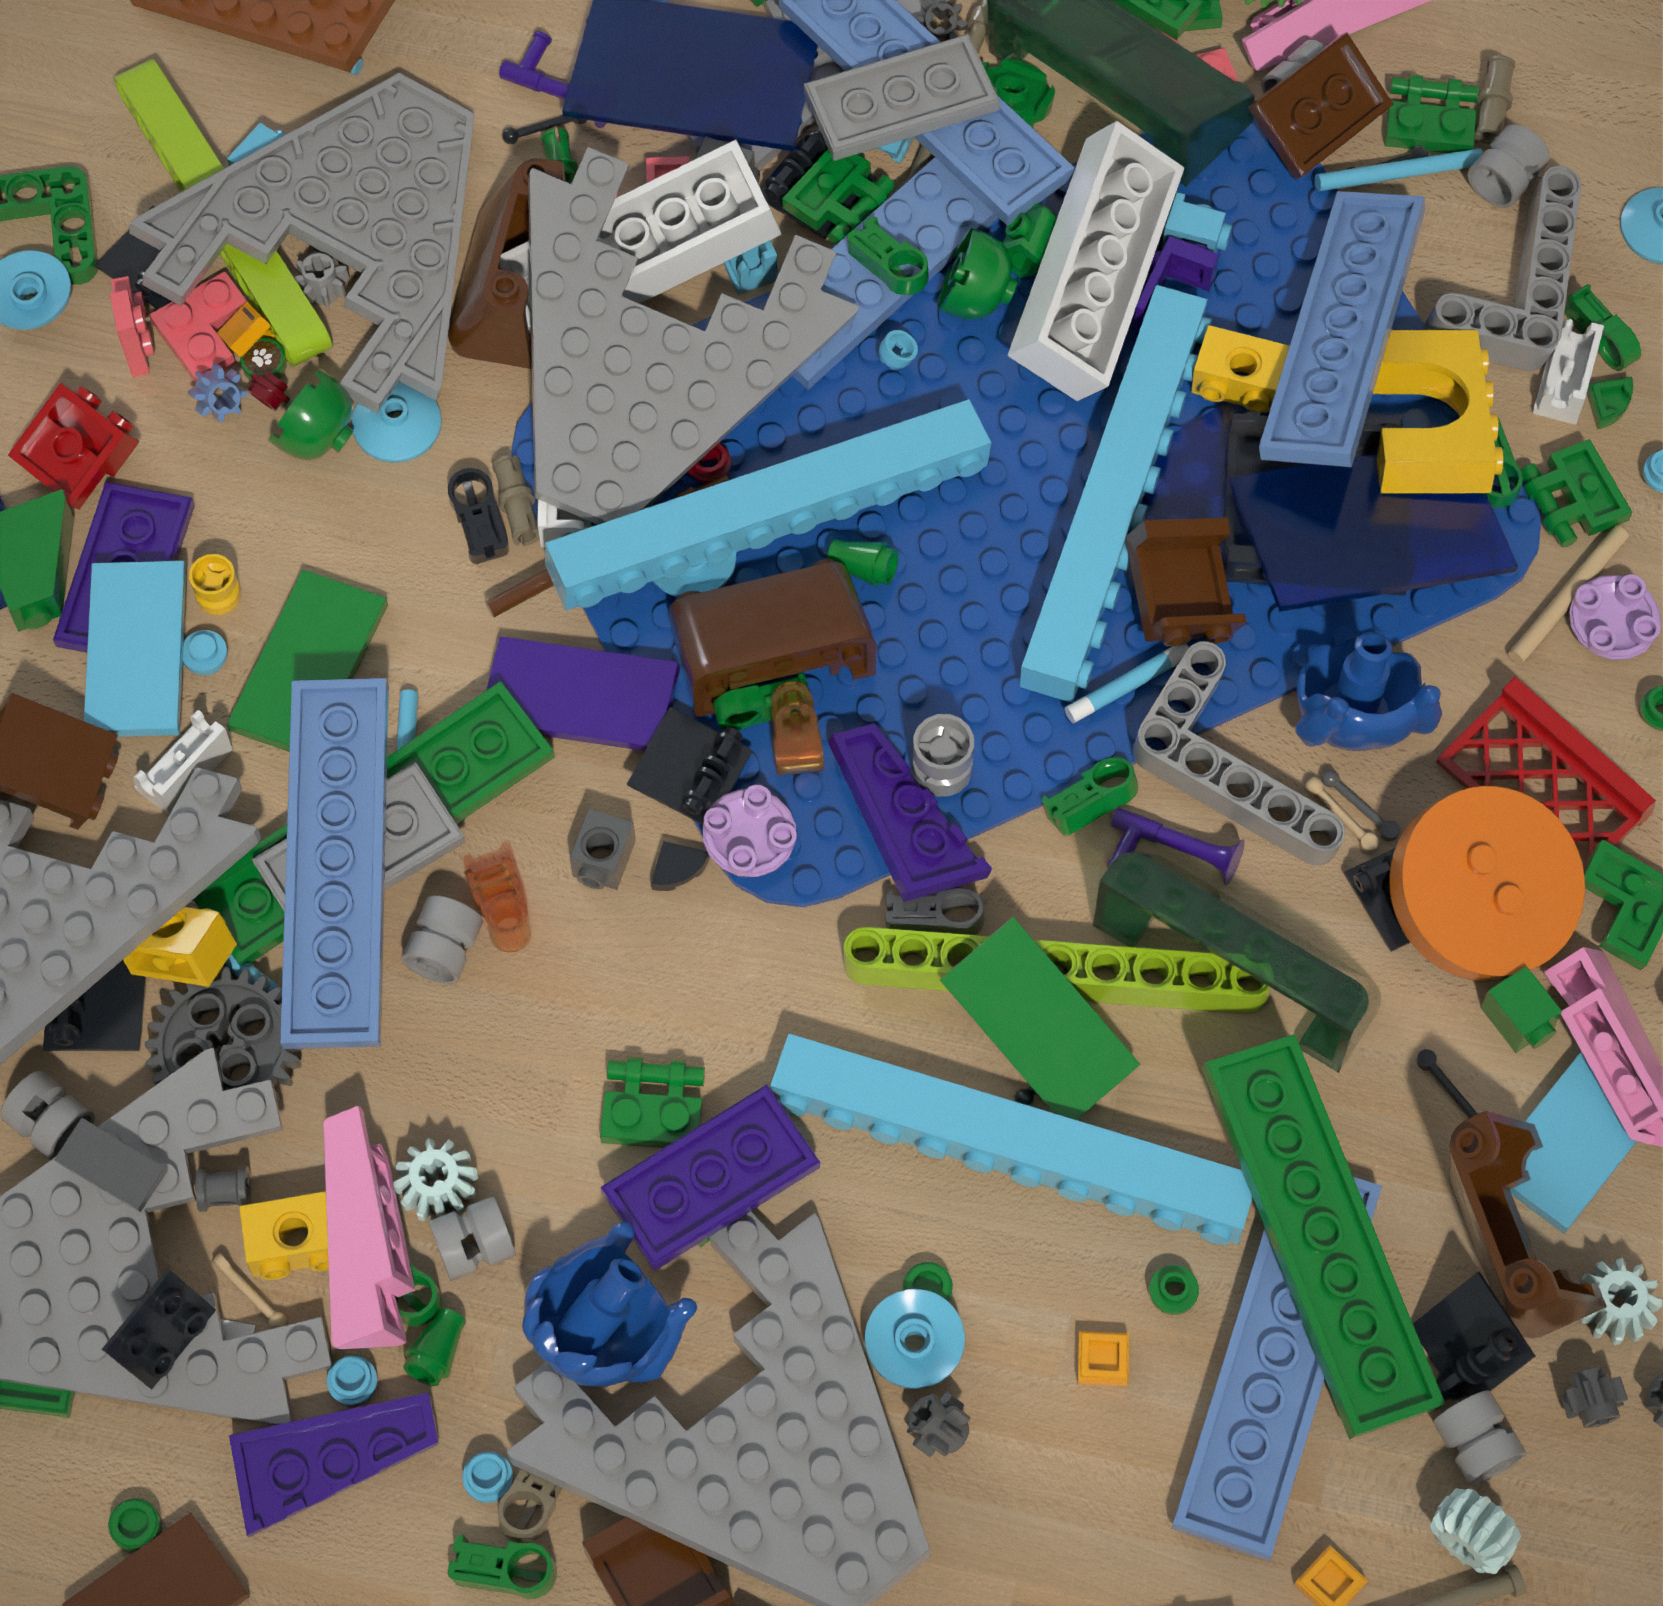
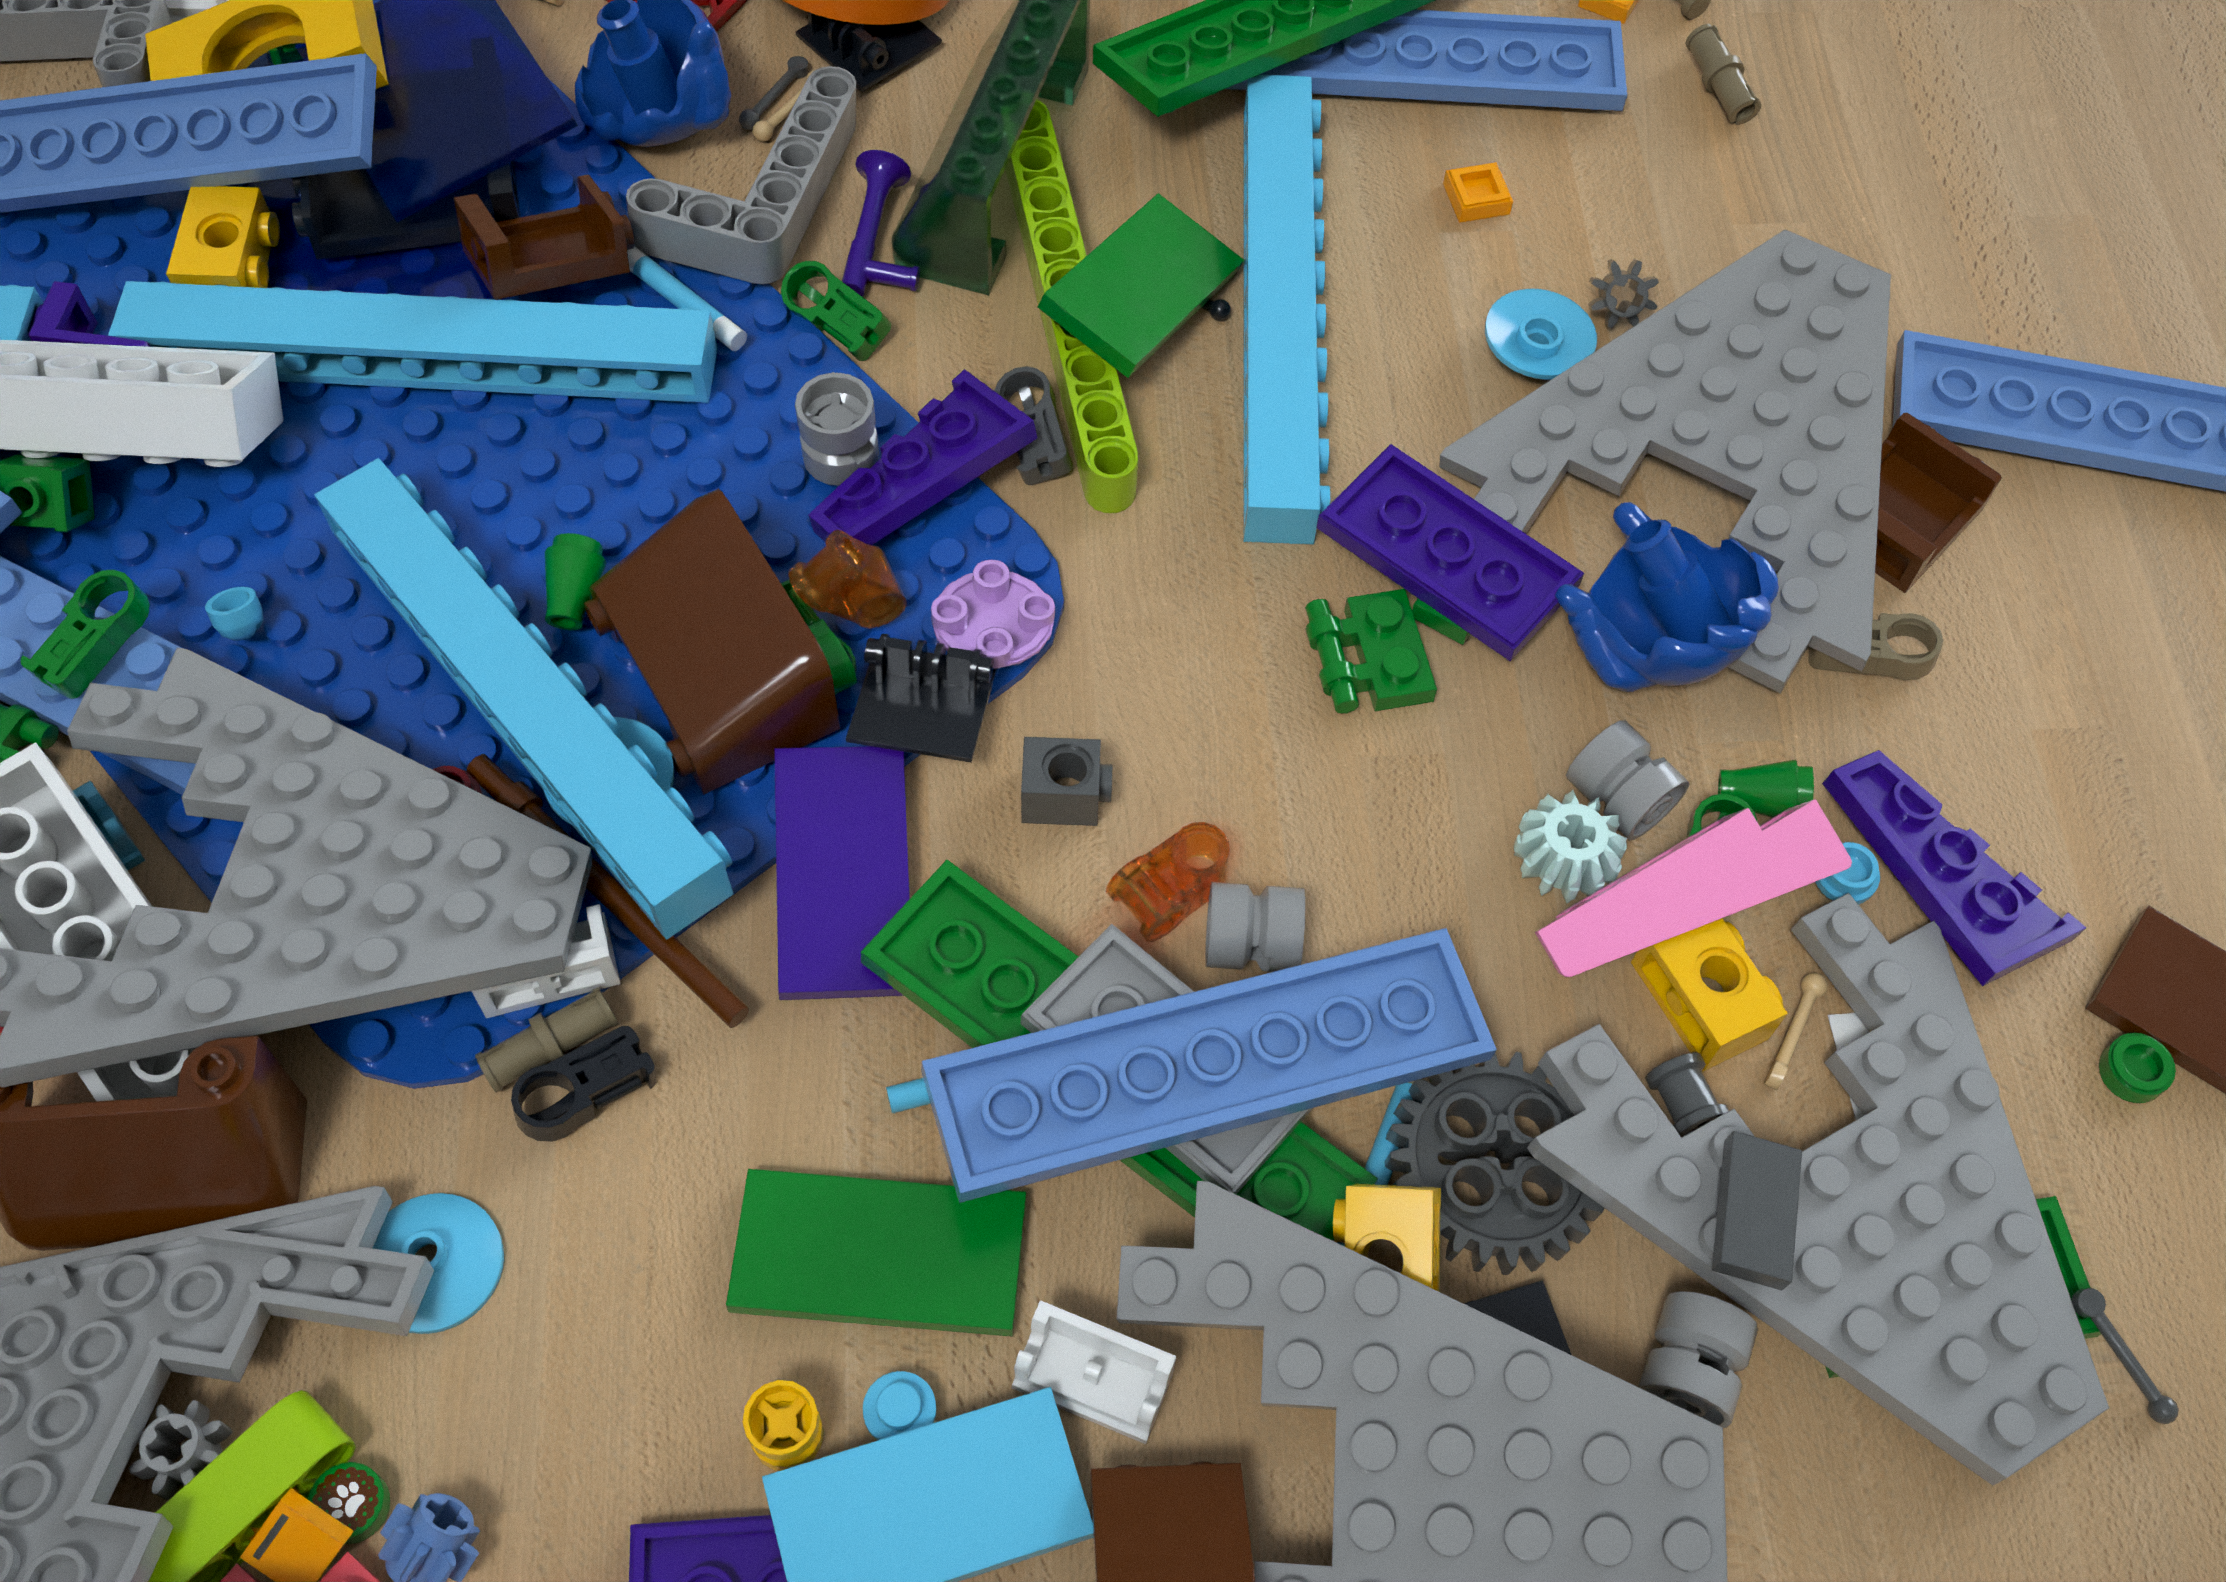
camera: 110 degrees left, 5 degrees down
(159, 1329) = (1960, 1075): black hinge -> none
(268, 390) = (409, 1465): dark red plate -> none
(316, 420) = (457, 1366): green cylinder -> none
(487, 1477) = (1883, 698): medium azure plate -> none
(494, 1566) = (1976, 666): green piece -> none
(678, 866) = (1052, 703): black tile -> none
(929, 1277) = (1467, 350): green tile -> none
(978, 278) = (106, 527): green cylinder -> none
(1169, 1303) = (1383, 147): green plate -> none

